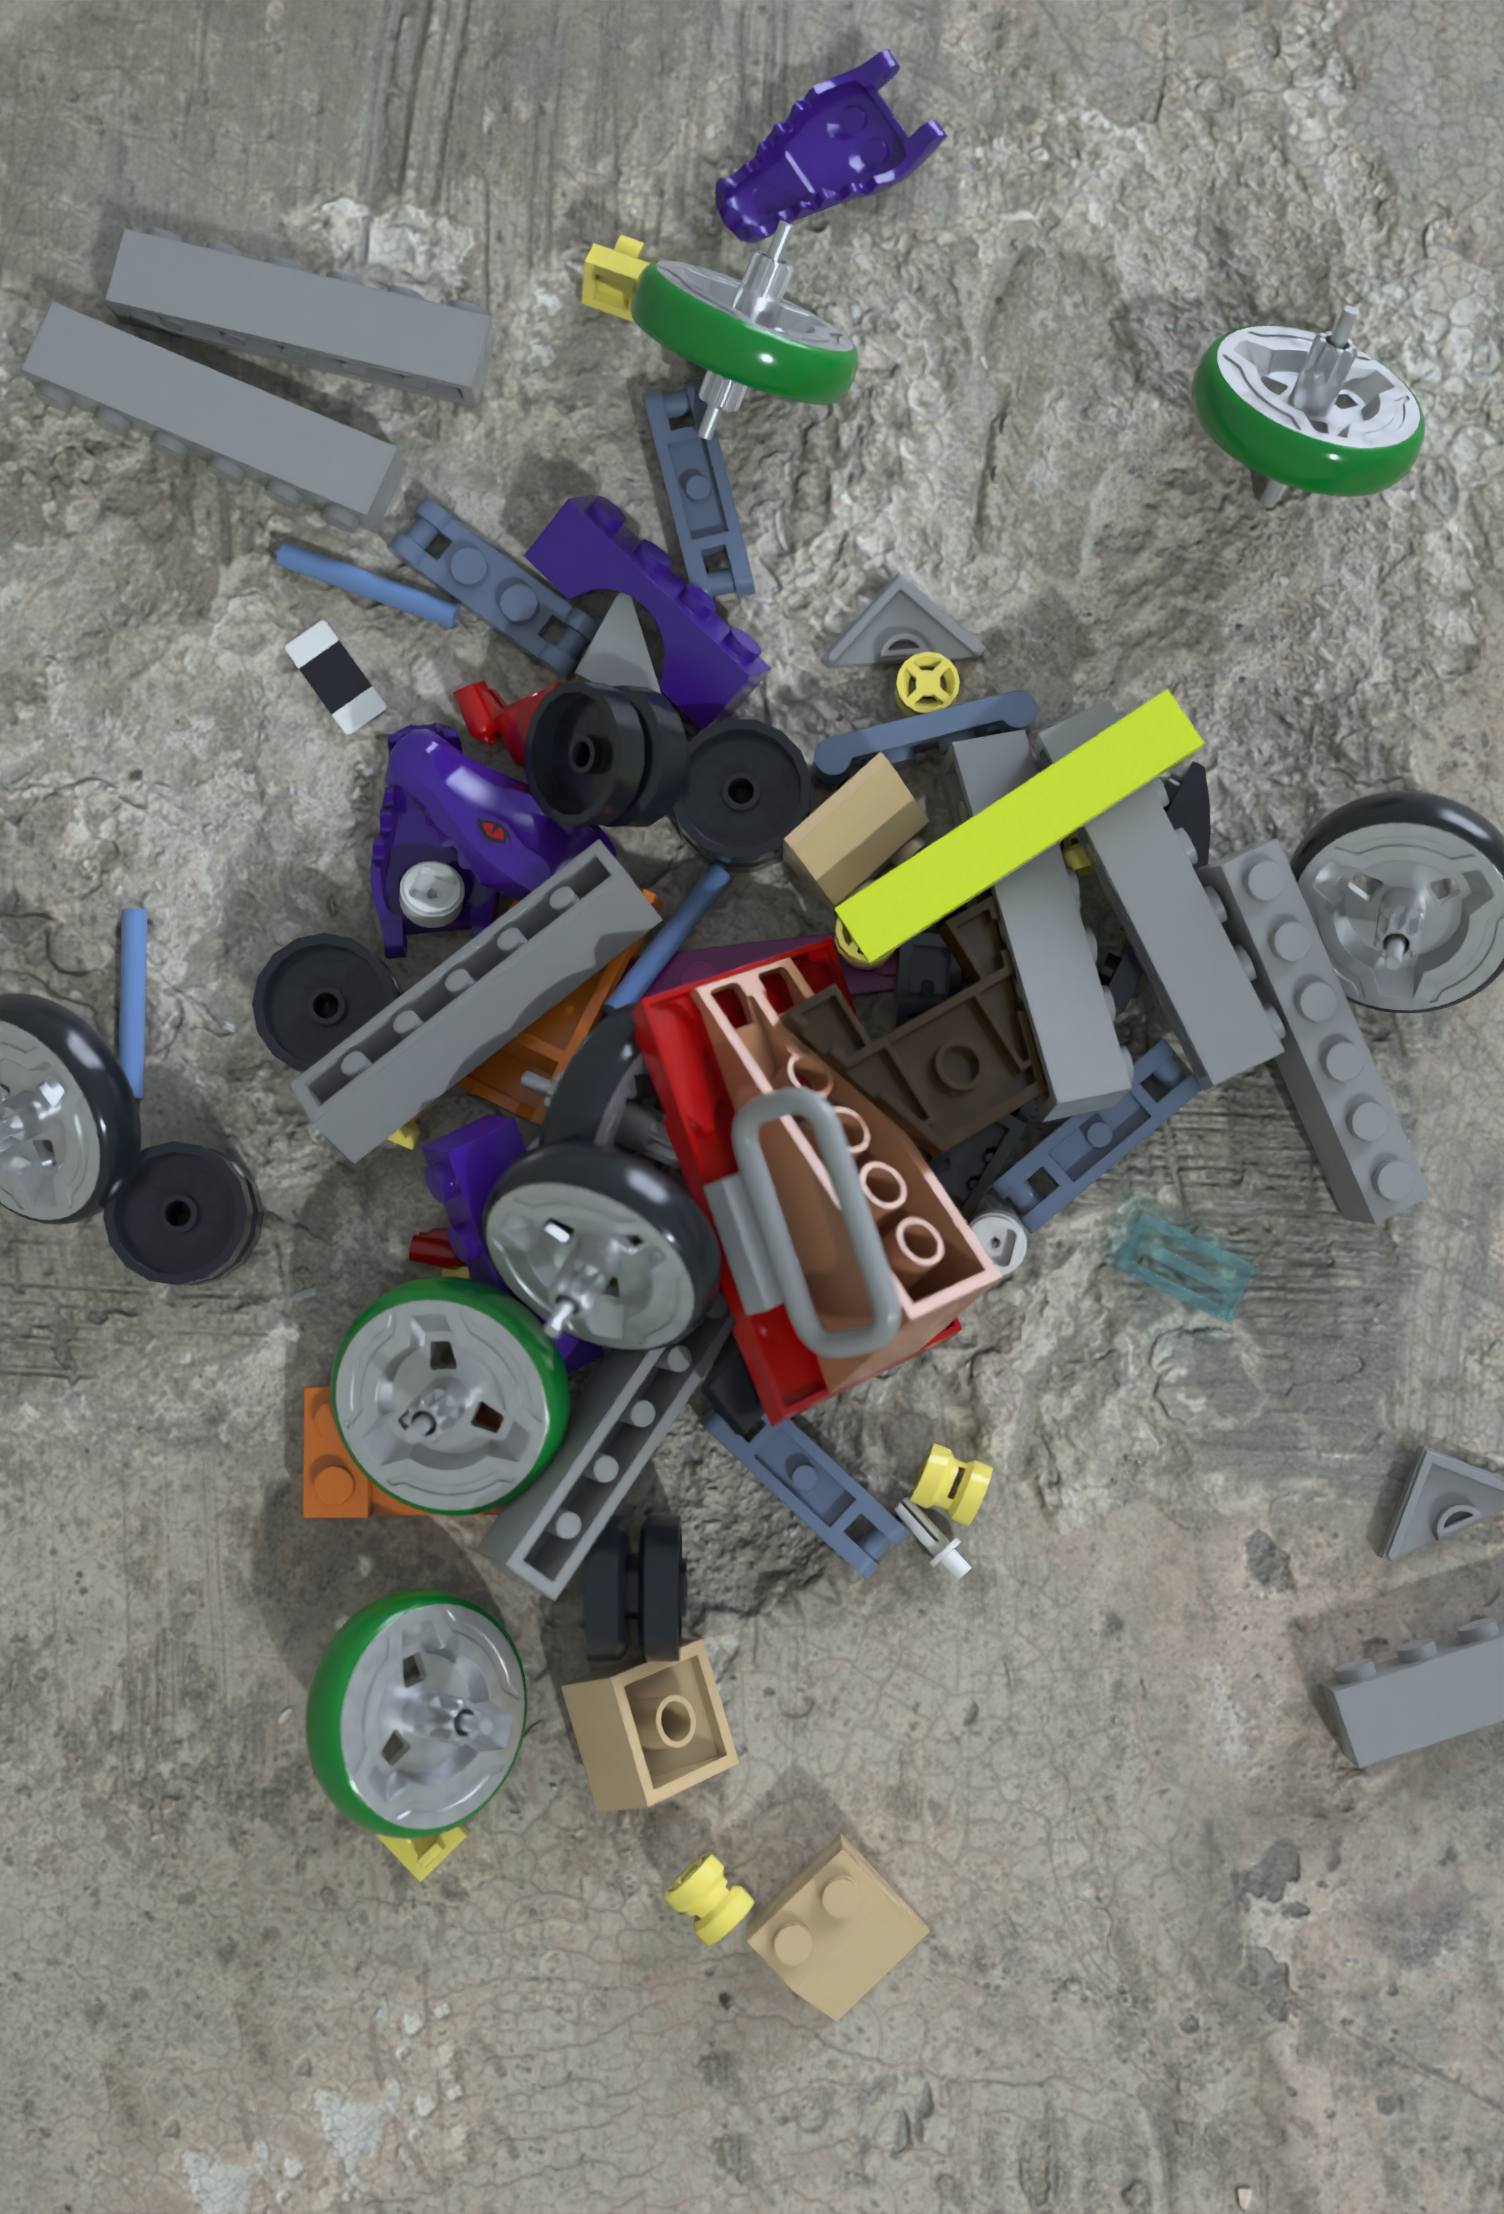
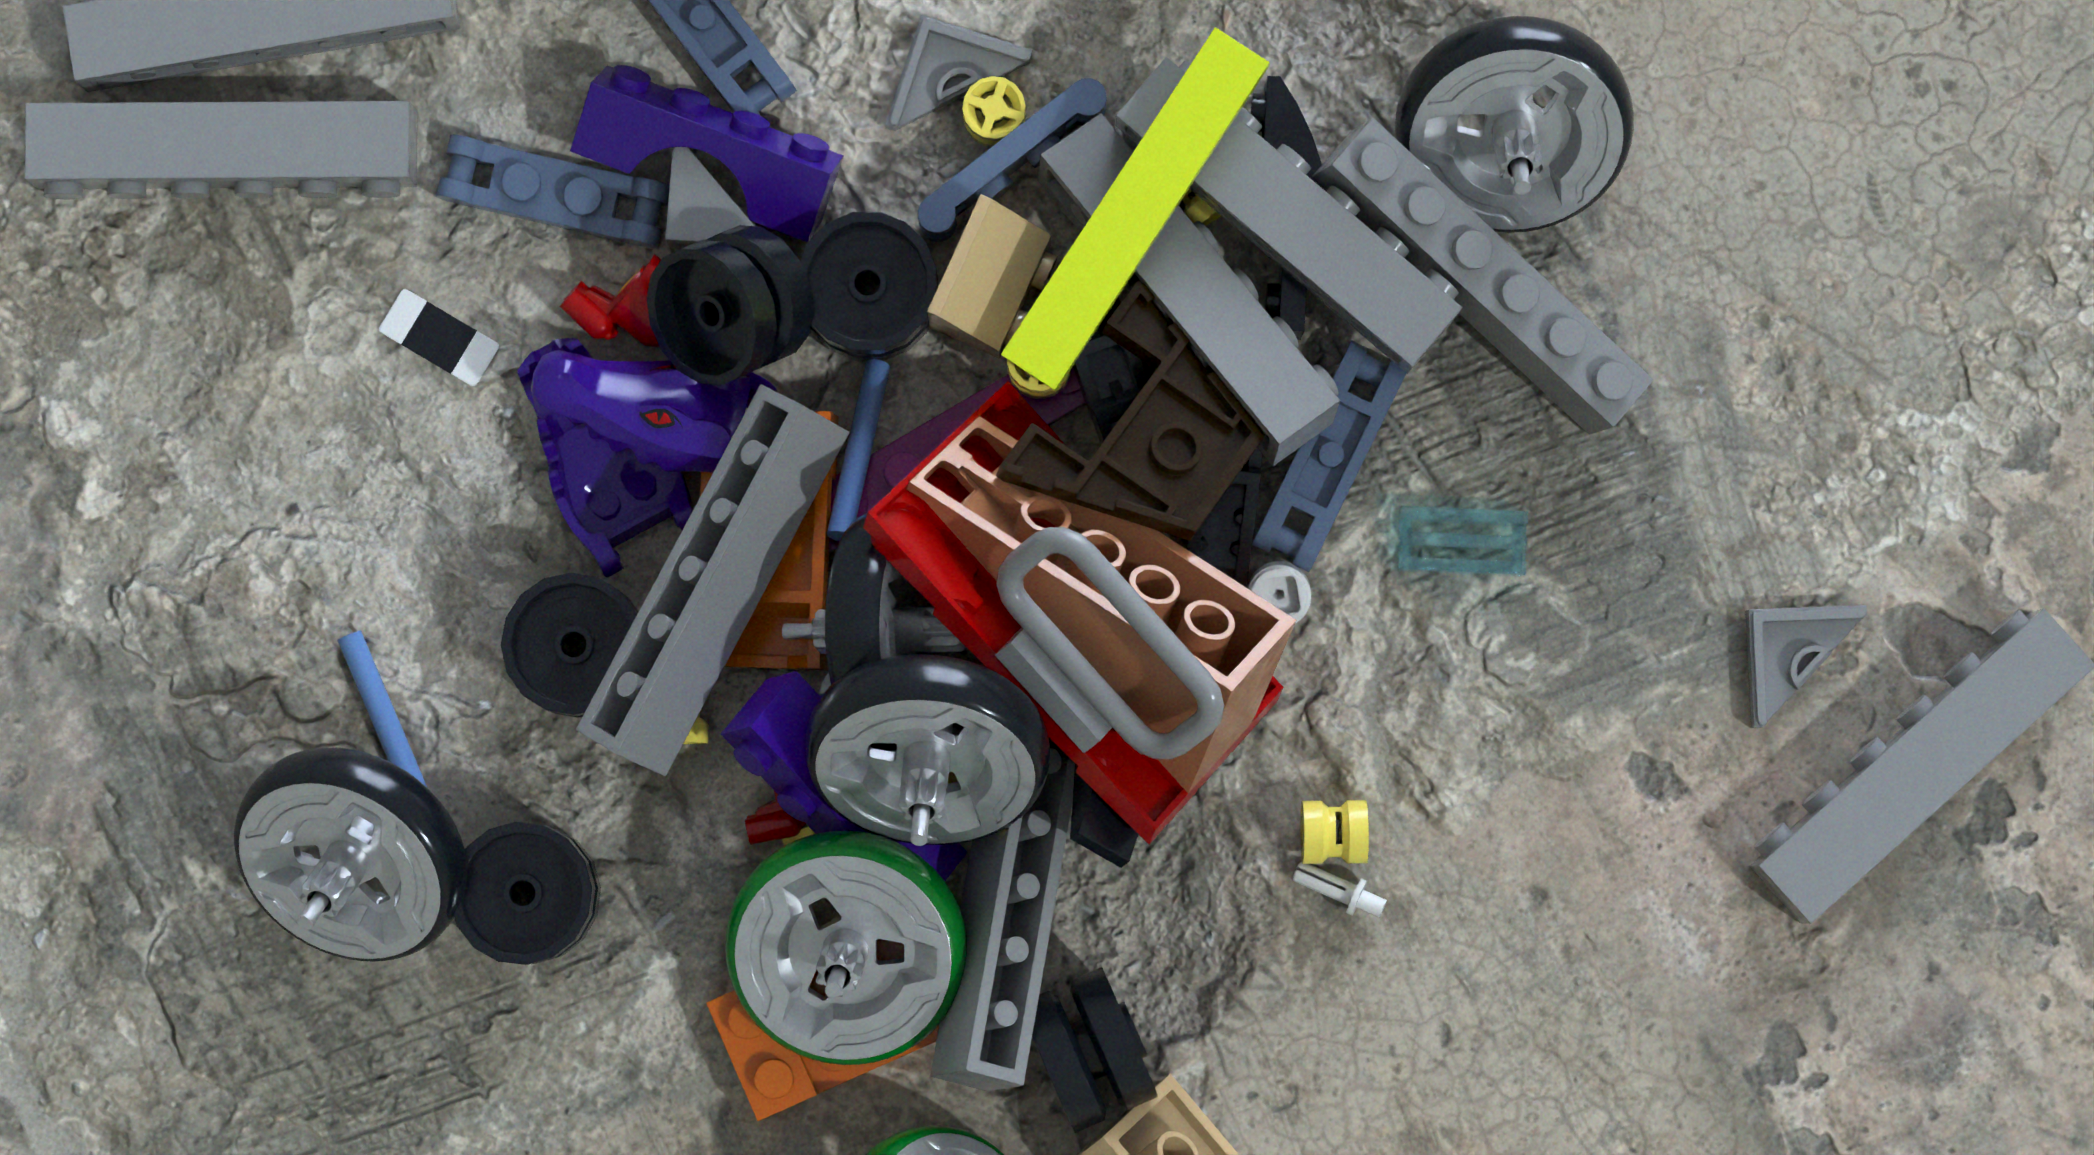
camera: 30 degrees left, 0 degrees up
(368, 584) = (432, 238): medium blue bar -> none
(431, 894) = (623, 500): white tile -> none
(813, 1488) = (1208, 890): sand blue plate -> none

